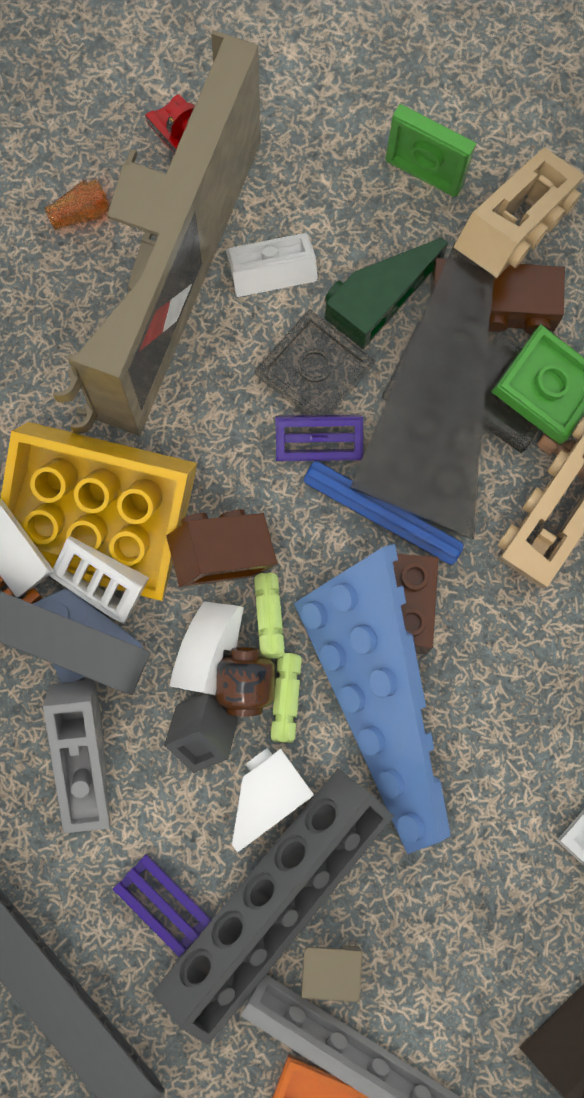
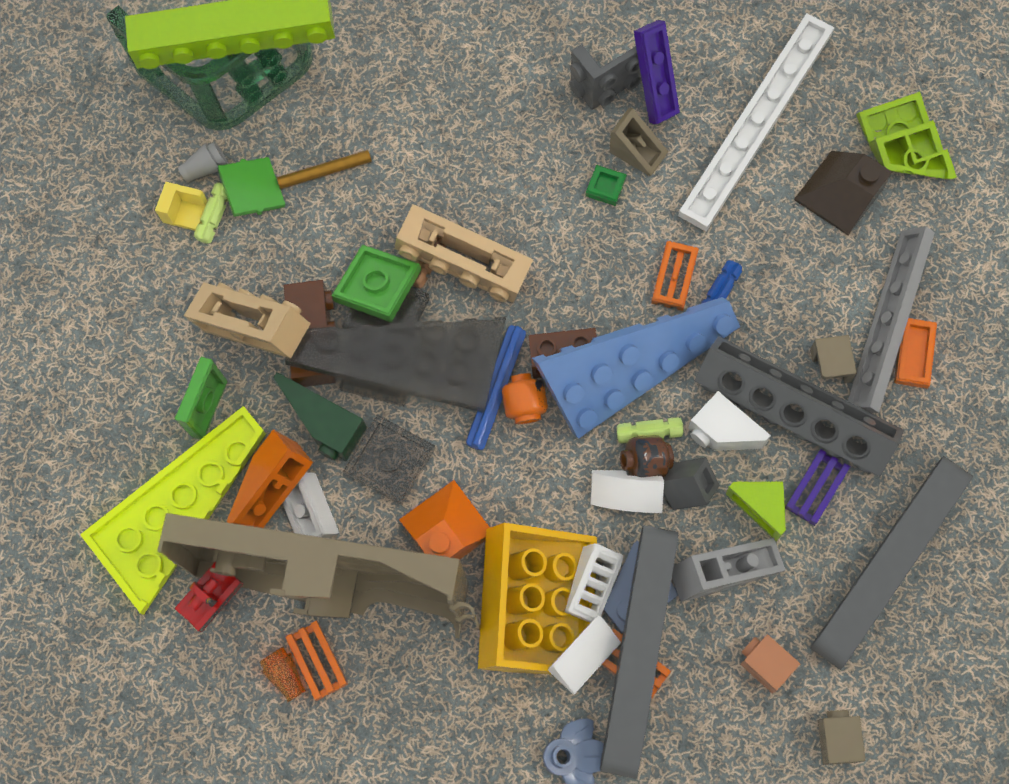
camera: 90 degrees left, 5 degrees down
(83, 232) = (303, 634): none -> orange tile
(153, 823) = (762, 503): none -> lime slope
(212, 416) = (446, 524): none -> orange slope
(220, 548) = (553, 493): reddish brown brick -> none
(269, 615) = (592, 452): yellowish green axle -> none
(304, 437) = (442, 470): dark purple tile -> none
(310, 217) = (269, 480): none -> orange slope
(315, 121) = (189, 486): none -> neon yellow wing
(354, 538) = (524, 399): none -> orange head
(463, 765) = (668, 300): none -> orange tile
(474, 845) = (724, 281): none -> blue axle

